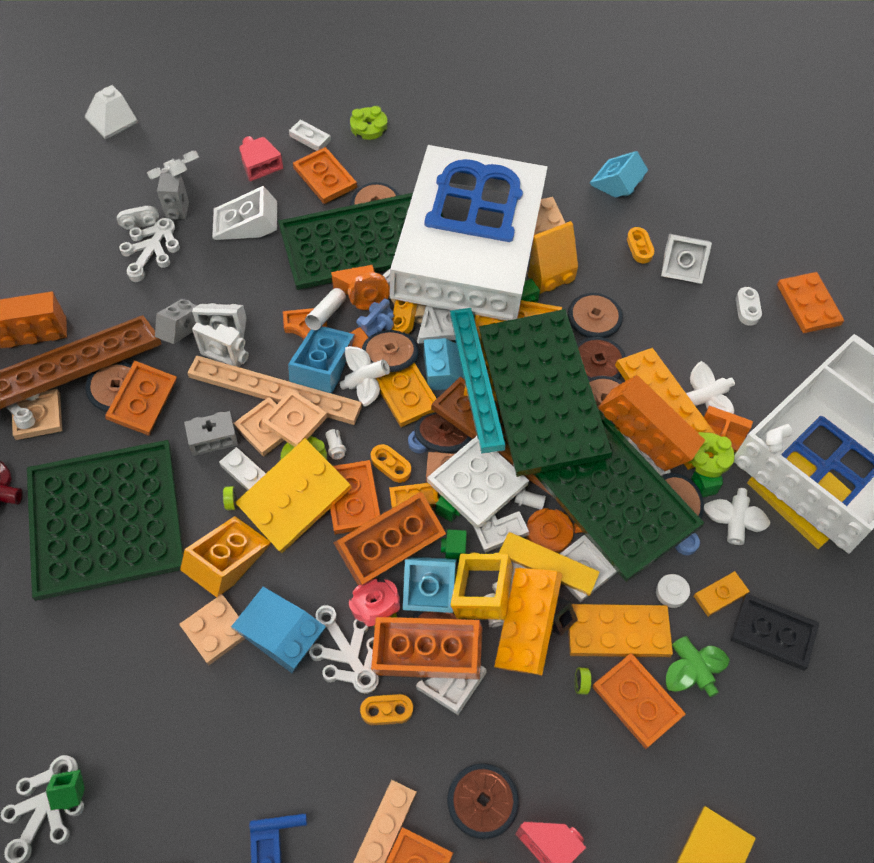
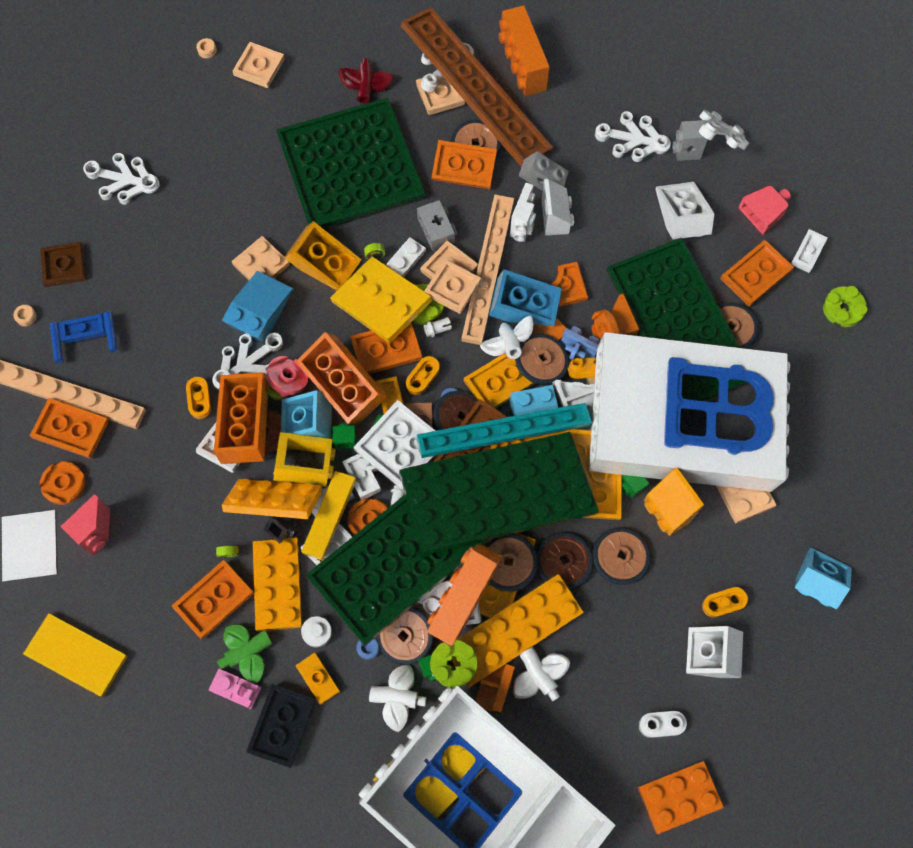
camera: 85 degrees right, 10 degrees up
(65, 790) = (128, 185): green plate -> none
(110, 112) = (795, 66): white slope -> none
(137, 217) = (663, 117): white bracket -> none
(325, 309) = (579, 295): white piece -> none
(473, 817) = (141, 485): copper wheel -> none
(736, 682) = (235, 688): none -> bright pink plate
(775, 437) = (452, 710): white arm -> none

